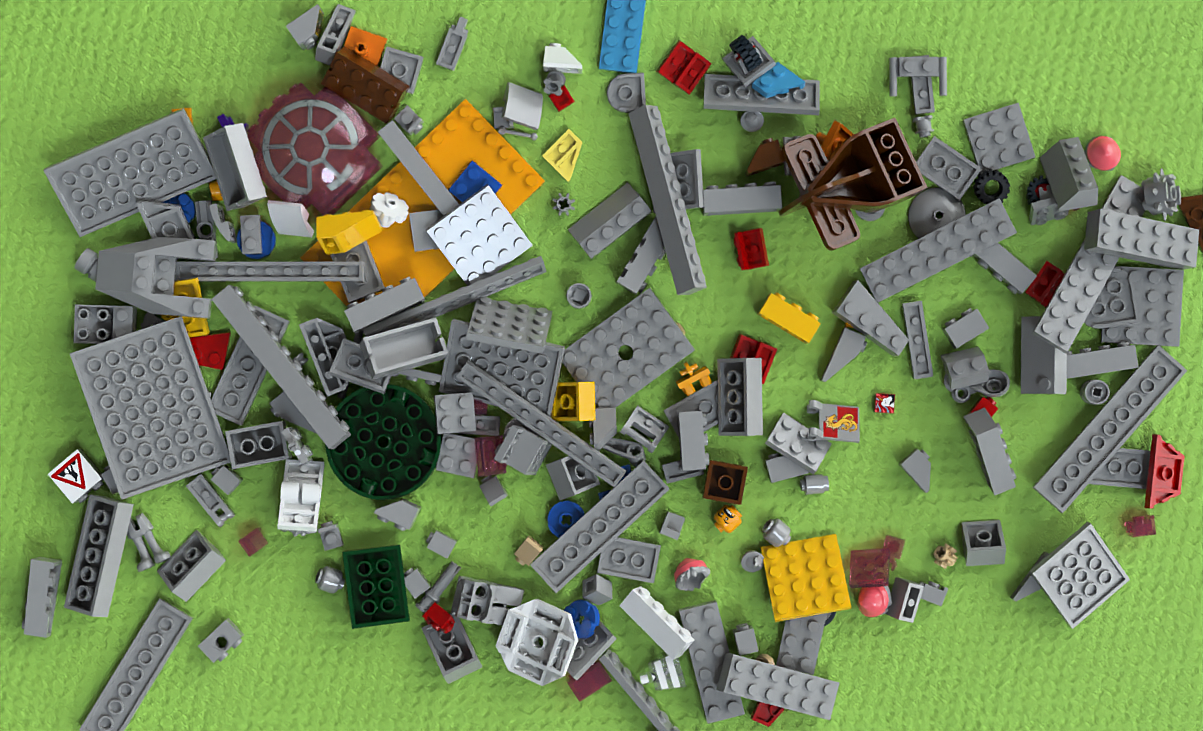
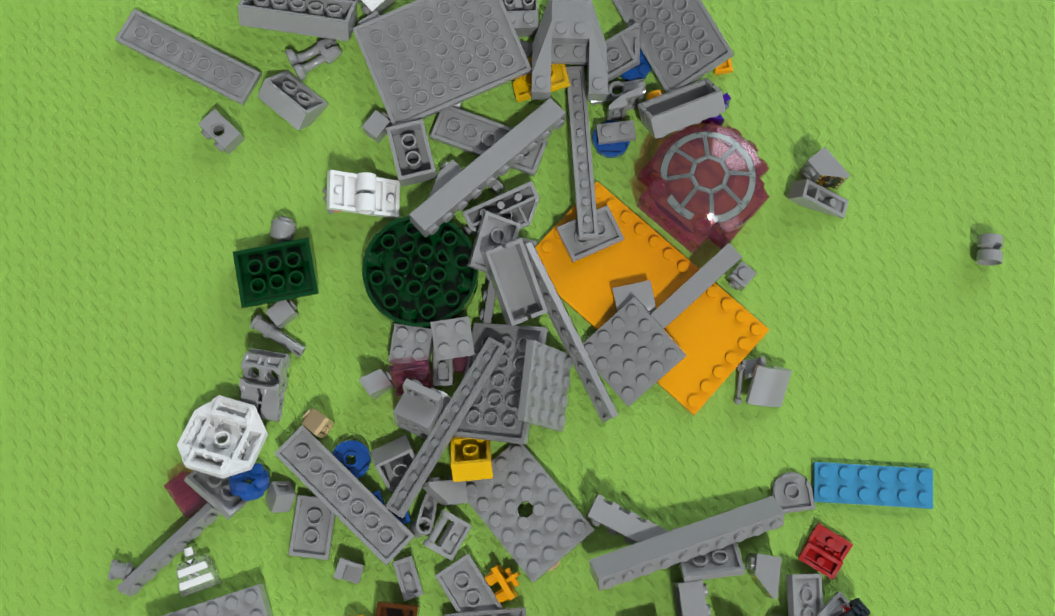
camera: 85 degrees right, 10 degrees down
(210, 499) = (356, 113): light grey plate -> none
(211, 349) = (501, 104): red wing -> none
(253, 542) = (317, 154): clear pink panel -> none
(290, 218) = (634, 166): white slope -> none
(294, 438) = (411, 186): light grey plate -> none
(330, 535) = (326, 228): light grey bracket -> none
(346, 230) = (628, 218): yellow slope -> none
(365, 84) = (773, 229): reddish brown piece -> none
(366, 44) = (805, 227): orange tile -> none
(387, 304) = (557, 262): light grey piece -> none
(389, 209) = (652, 259): white plant -> none
(401, 513) = (349, 291): light grey slope -> none
(402, 66) = (790, 263): light grey plate -> none
(439, 618) = (246, 337): red brick -> none
(441, 543) = (322, 335): light grey brick -> none
(452, 651) = (216, 352): light grey slope -> none
(453, 45) = (821, 314): light grey hinge -> none
(471, 181) = (688, 340): blue plate -> none
(554, 82) = (795, 416): light grey brick -> none
(560, 59) = (818, 421): white slope -> none
(561, 199) = (667, 438): light grey gear -> none
(562, 101) = (779, 426): red tile -> none
(564, 154) = (723, 432): light yellow wing -> none
(579, 295) = (580, 457): light grey wheel -> none
(609, 220) = (659, 484): light grey slope -> none
(657, 622) = (245, 561): white brick -> none
(690, 574) = (299, 593): light grey hair -> none
(692, 440) = (437, 587): light grey brick -> none
(700, 128) = (765, 573): none -> light grey slope

